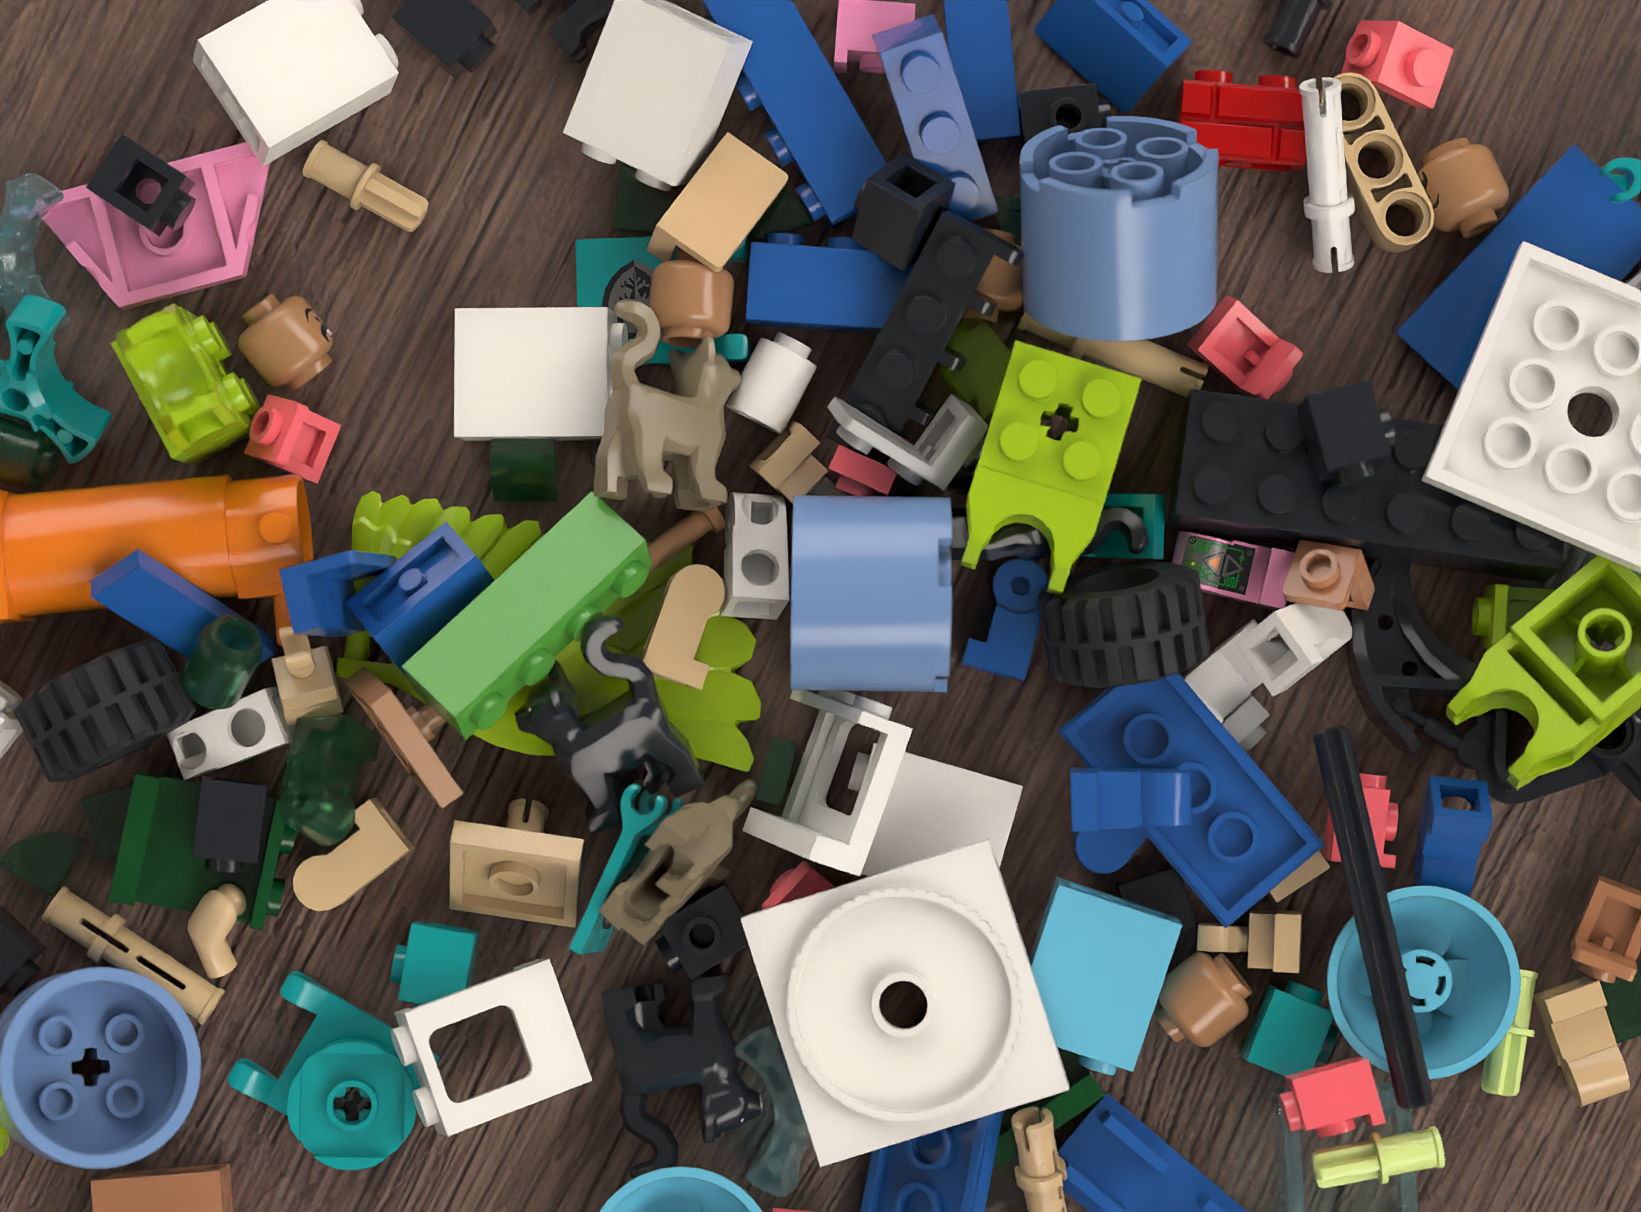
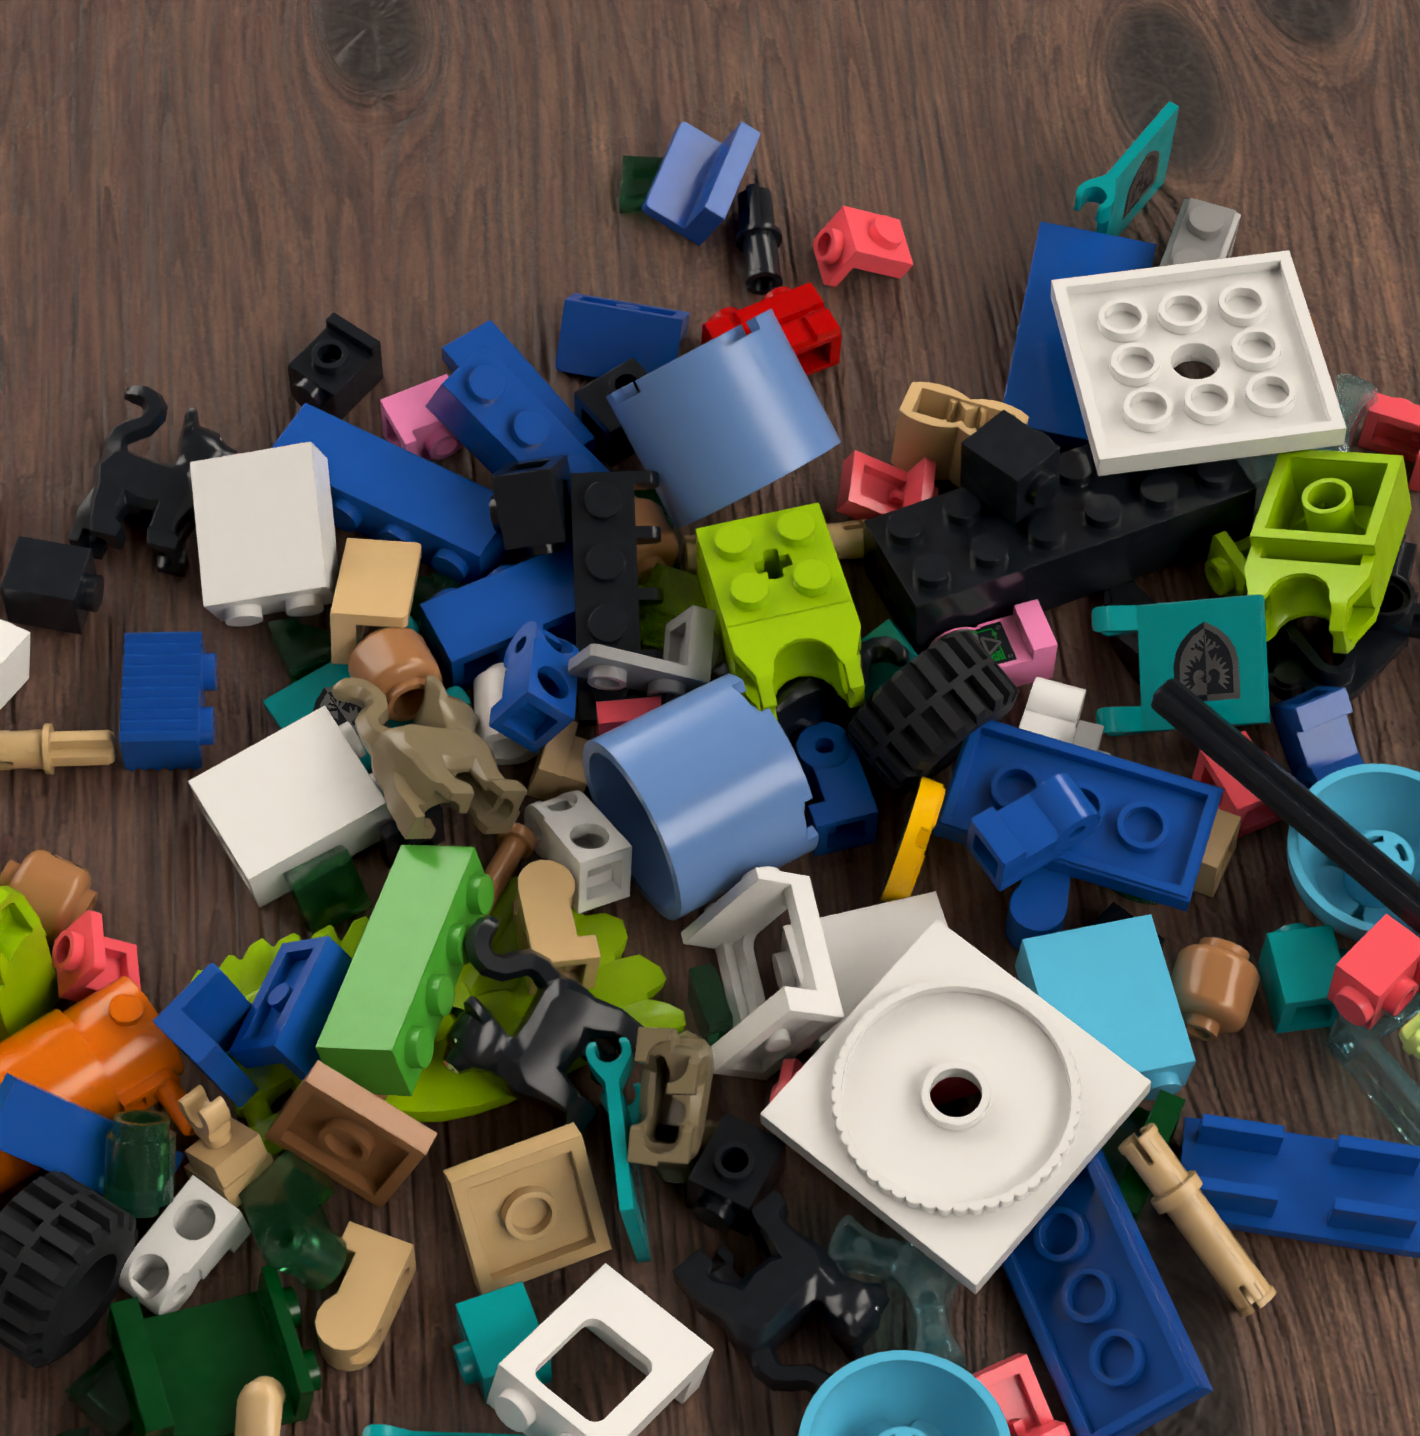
camera: 30 degrees left, 30 degrees down
(229, 823) = (224, 1315): black brick -> none
(488, 198) = (165, 700): none -> blue brick
(795, 401) = (536, 688): none -> blue leg
(1033, 728) = (913, 840): none -> yellow tile
(1270, 939) = (1231, 911): tan piece -> none
(1294, 643) = (1081, 660): white leg -> none
(1328, 198) = (861, 326): white pin -> none
(1329, 577) = (1069, 600): nougat bracket -> none
(1337, 338) = (935, 424): none -> tan brick
(1389, 698) = (1206, 645): none -> teal flag
(1401, 183) = (896, 318): tan beam -> none
(1463, 187) = (975, 299): medium nougat head -> none

